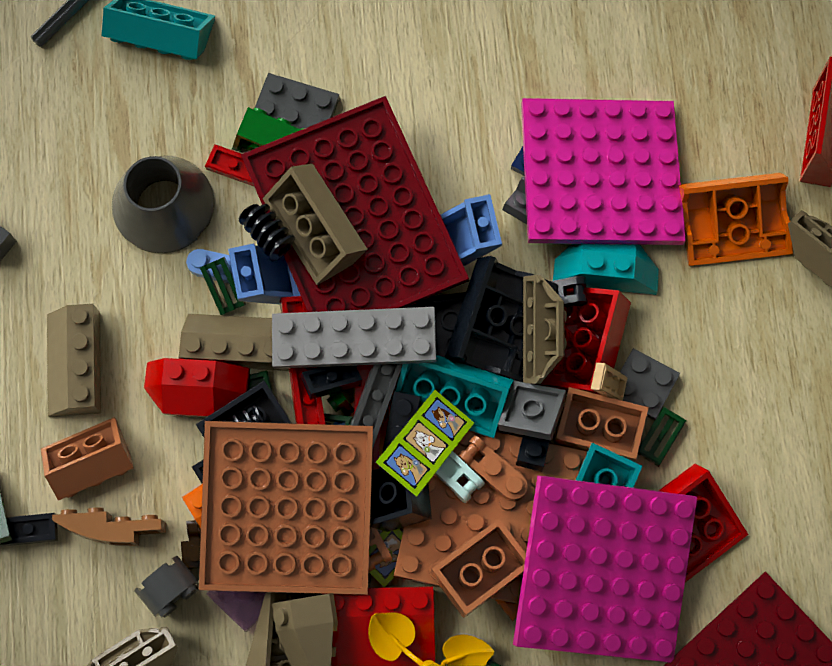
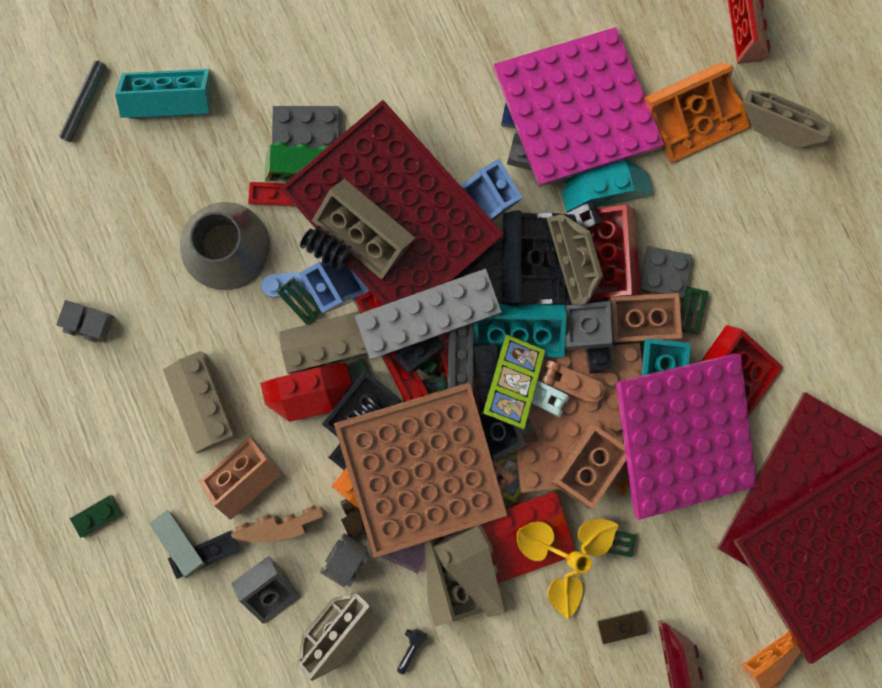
camera: 25 degrees left, 10 degrees up
(67, 593) = (265, 590): none -> dark grey slope
(608, 381) = (642, 283): tan plate -> none

